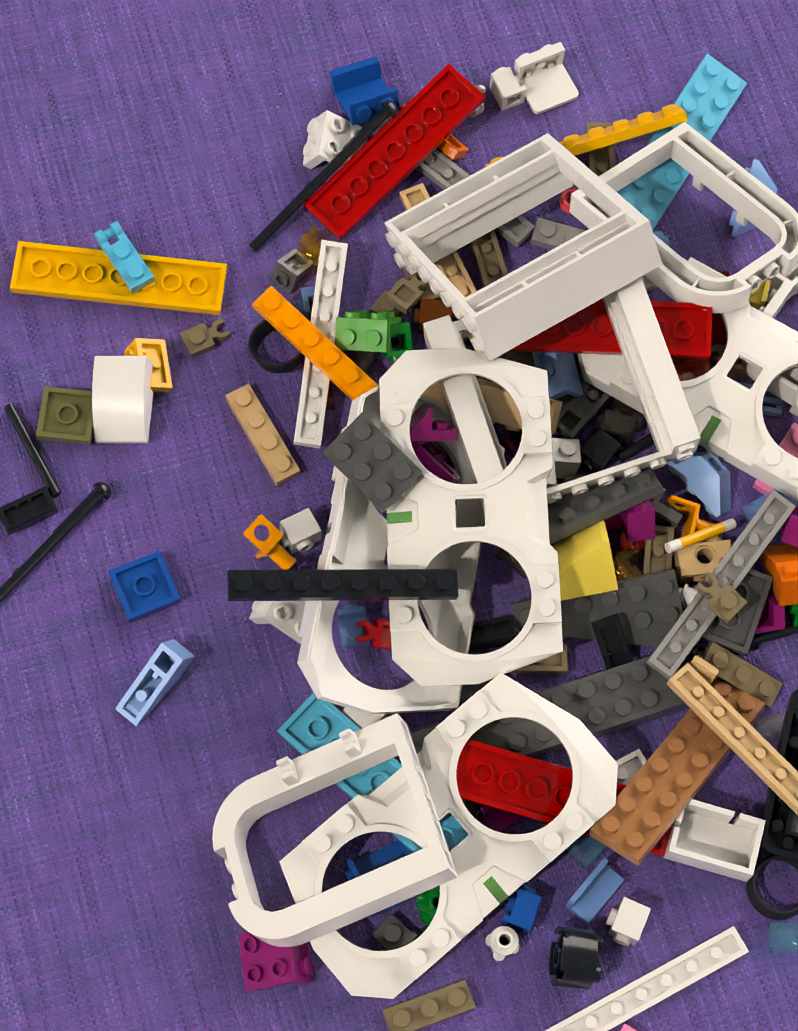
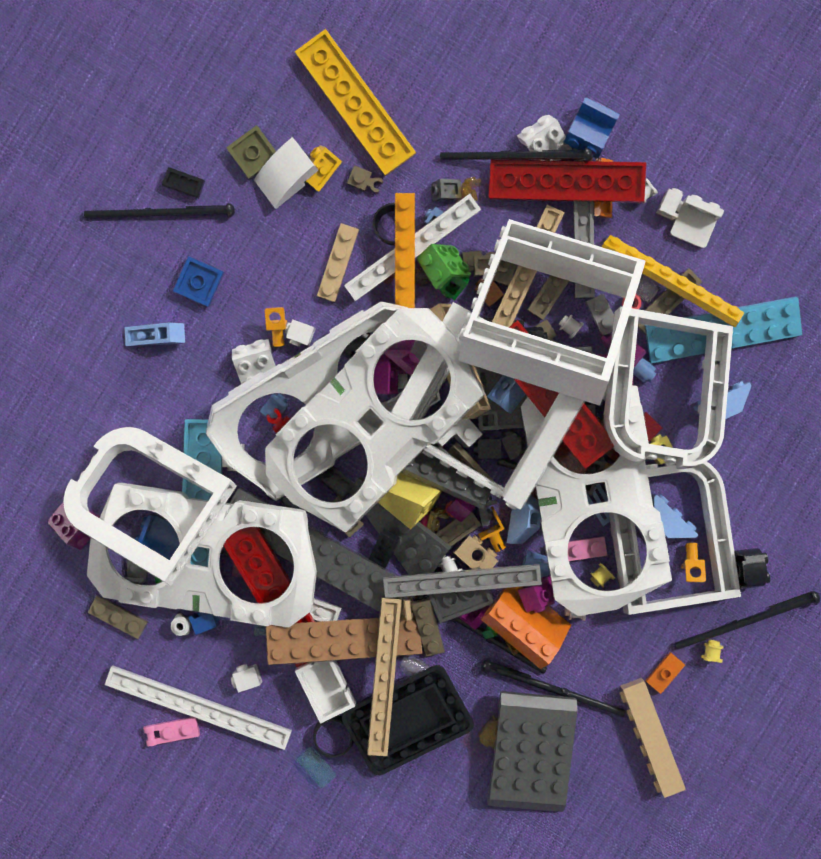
camera: 55 degrees right, 20 degrees up
(32, 450) = (219, 152): black bar -> none
(124, 257) = (366, 95): medium azure plate -> none
(342, 585) = (267, 393): black plate -> none
(372, 462) = (347, 348): dark grey plate -> none
(575, 958) = (202, 668): black brick -> none
(594, 892) = (247, 648): medium blue panel -> none
(700, 535) = (485, 544): yellow bar -> none
(724, 601) = (451, 590): dark tan plate -> none

